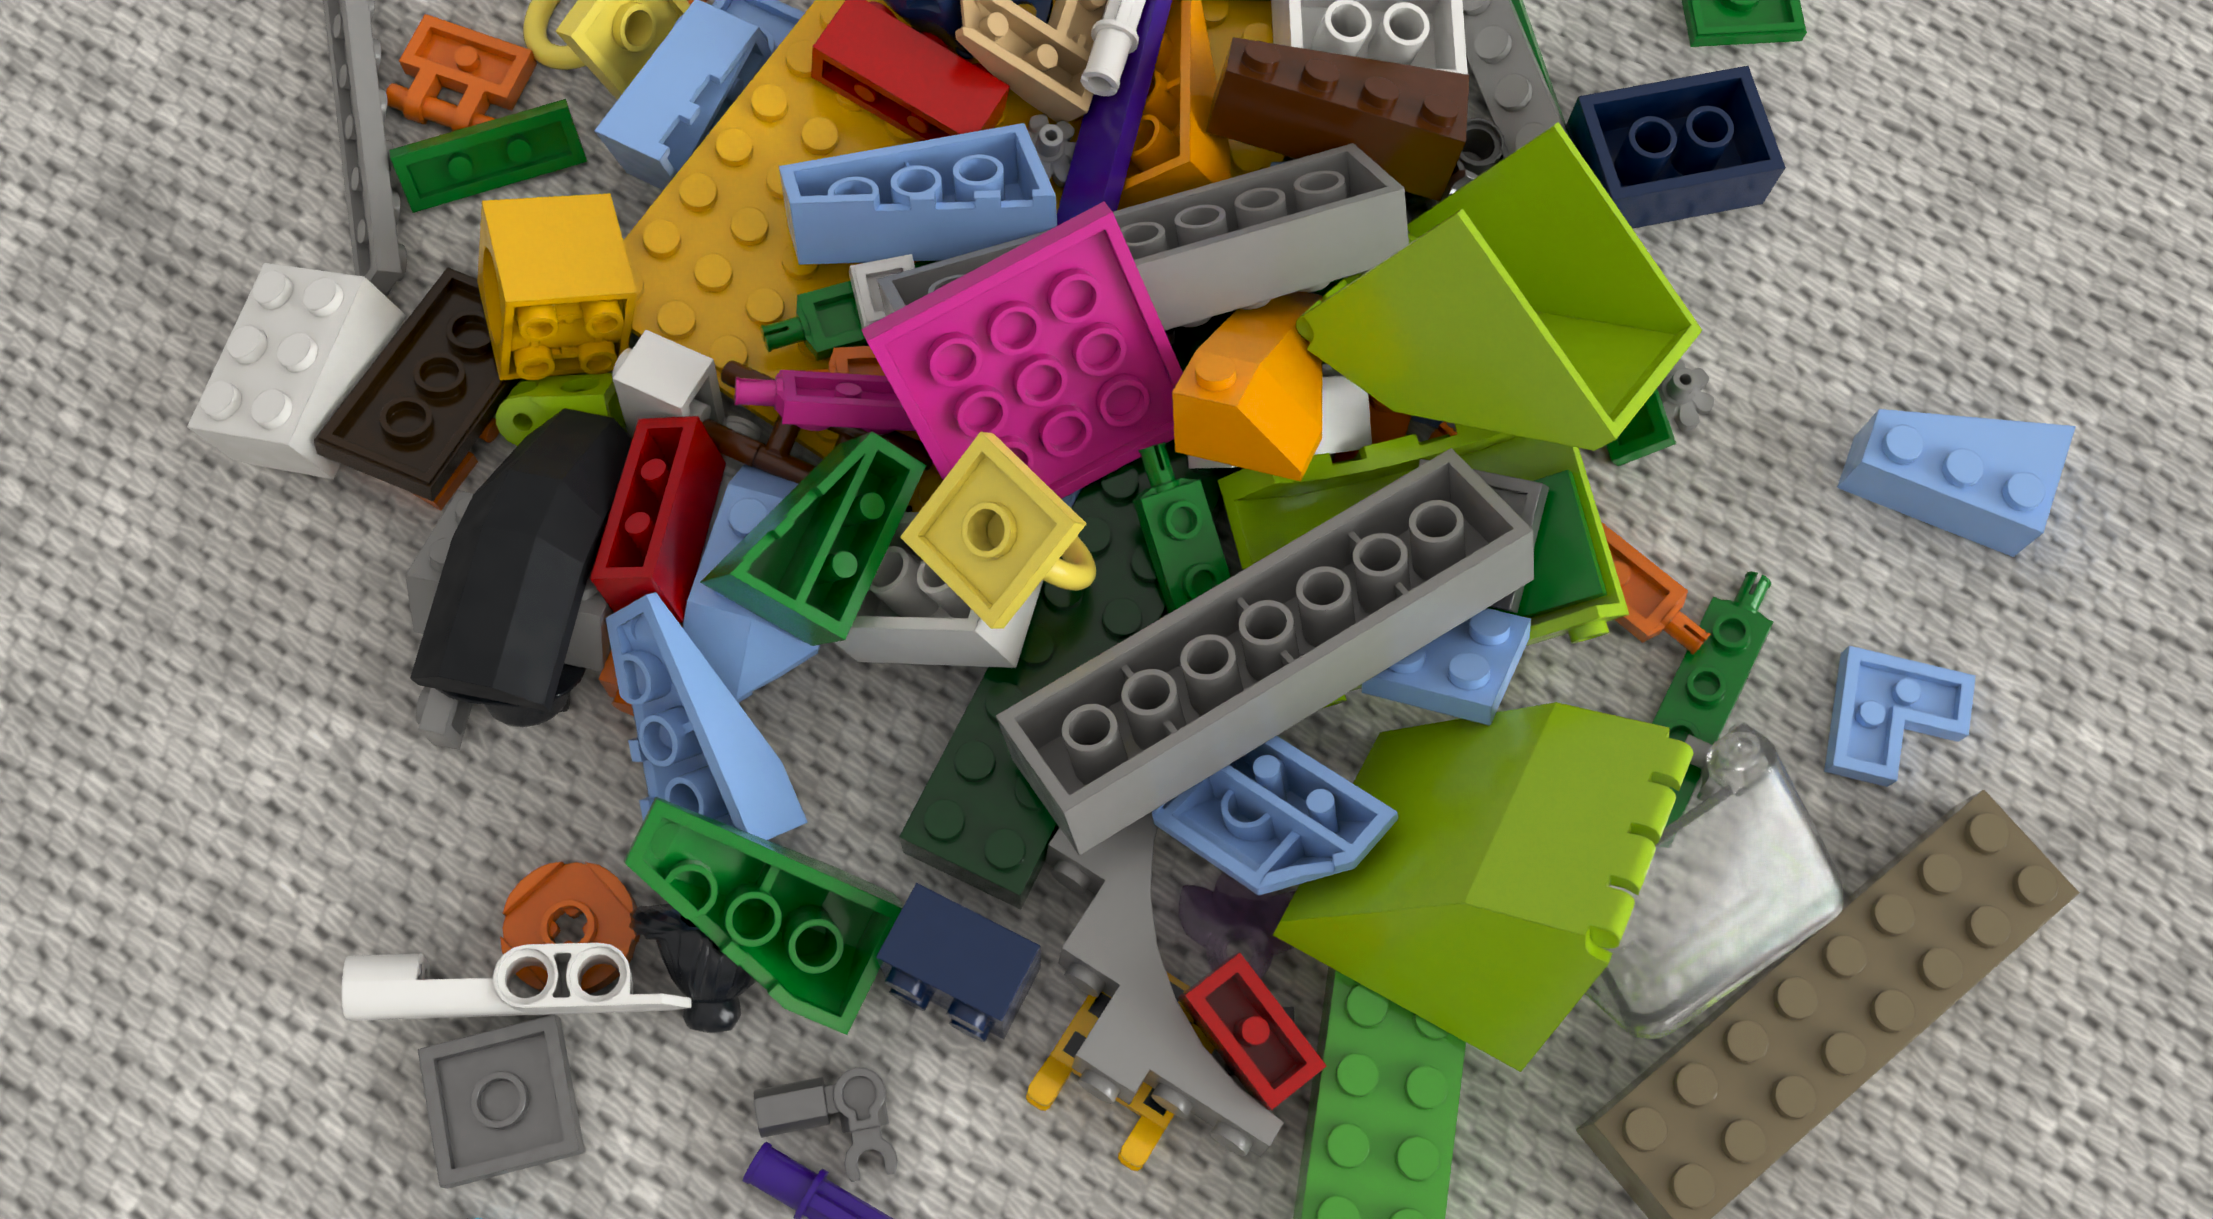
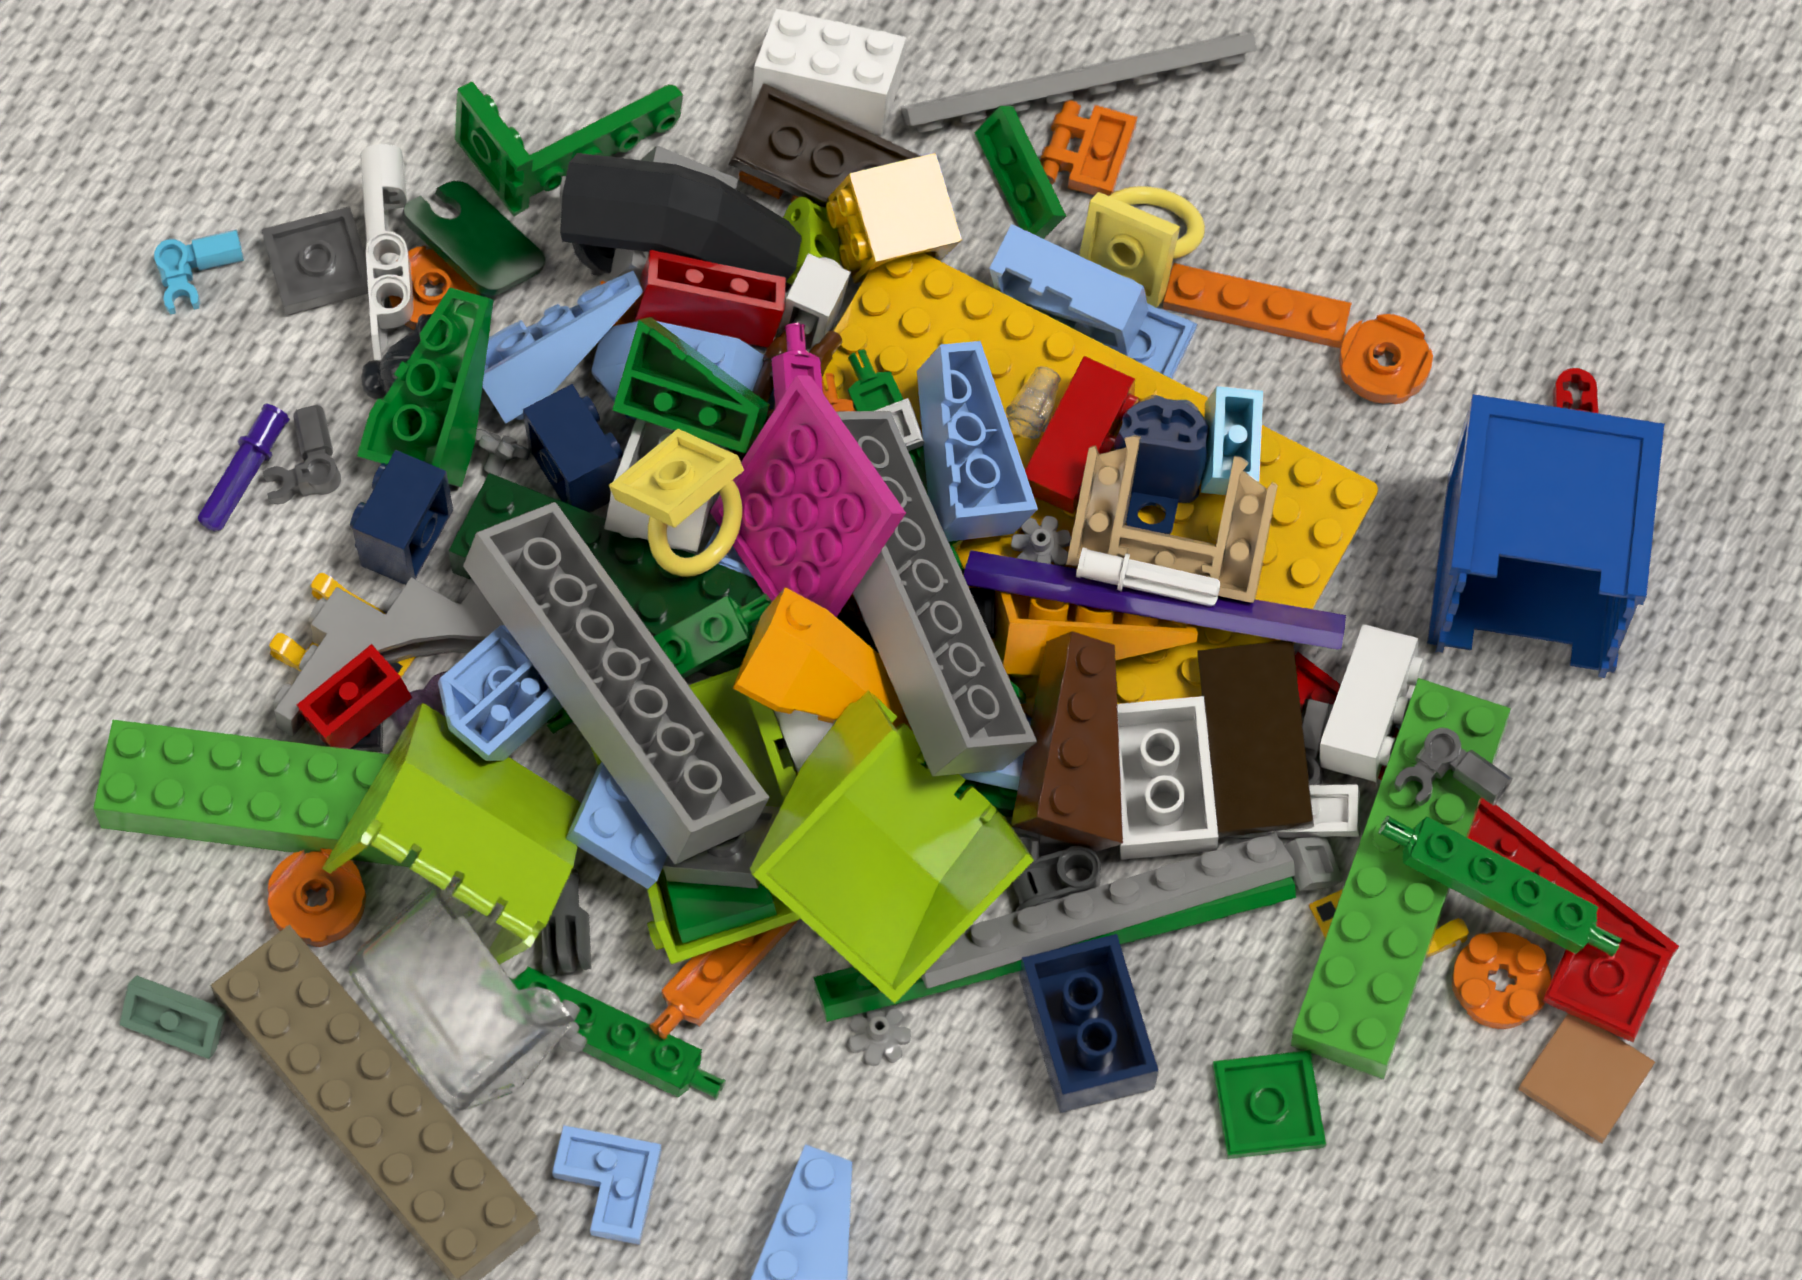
camera: 90 degrees right, 5 degrees down
(368, 811) = (517, 176): none -> green bracket
(498, 864) = (476, 243): none -> dark green piece
(842, 832) = (500, 450): none -> light grey plant
(855, 125) = (1034, 404): none -> clear cone
(870, 719) = (572, 448): none -> dark blue brick
(1522, 1137) = (322, 923): none -> orange plate

